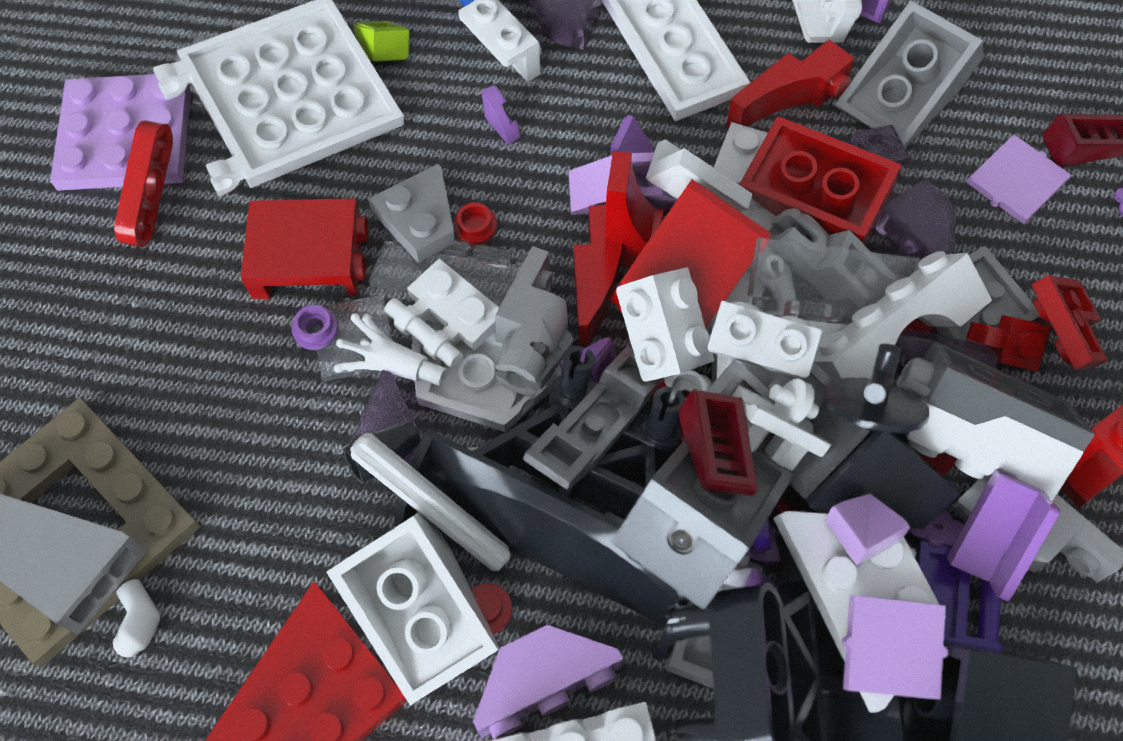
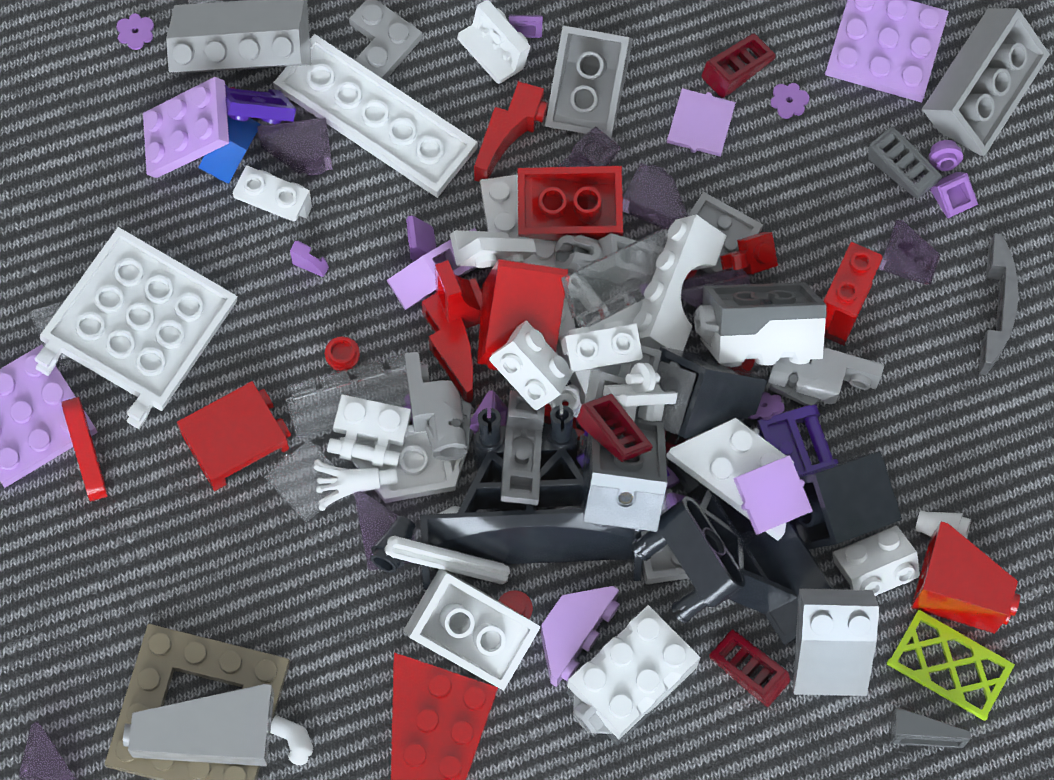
camera: 35 degrees left, 5 degrees up
(313, 316) = (280, 478): medium lavender plate -> none
(382, 40) = (176, 240): lime slope -> none
(417, 213) = (297, 366): light grey wing -> none
(865, 526) = (722, 433): lavender slope -> none
(876, 401) = (690, 351): black shield -> none
(1004, 533) = (803, 391): medium lavender panel -> none
(1071, 315) = (776, 215): red plate -> none

